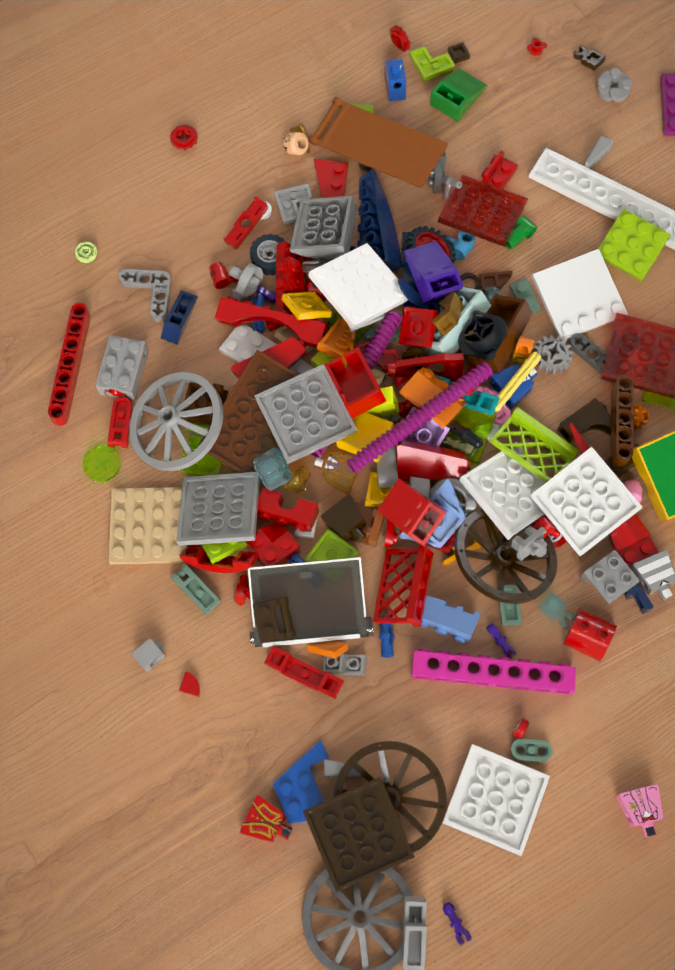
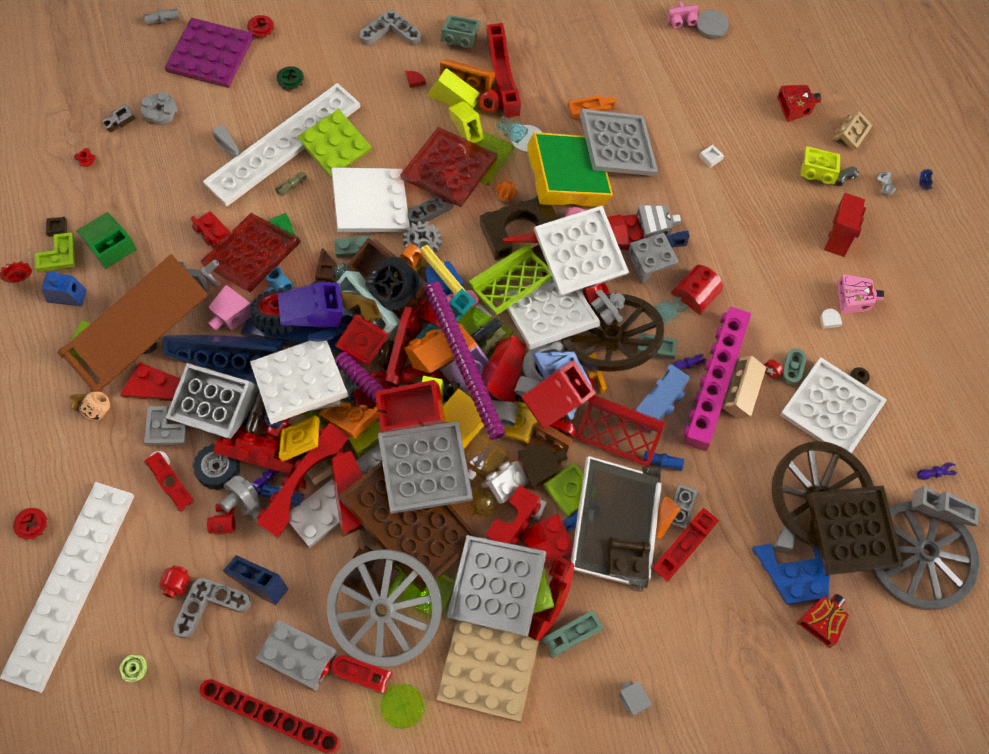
camera: 80 degrees left, 5 degrees down
(143, 183) = (67, 588): none -> white plate
(161, 256) = (174, 581): none -> red head
(190, 685) = (673, 663): red tile -> none
(242, 591) = (588, 587): red piece -> none
(272, 469) = (471, 517): clear light blue piece -> none
(321, 492) = (505, 480): none -> white bracket
(419, 212) = (229, 309): none -> bright pink torso
(488, 700) = (744, 387): none -> tan brick
(536, 826) = (863, 372): none -> dark brown plate
(566, 218) = (283, 188): none -> olive piece
(603, 783) = (830, 319): none -> white tile
(620, 428) = (512, 199): reddish brown beam -> none

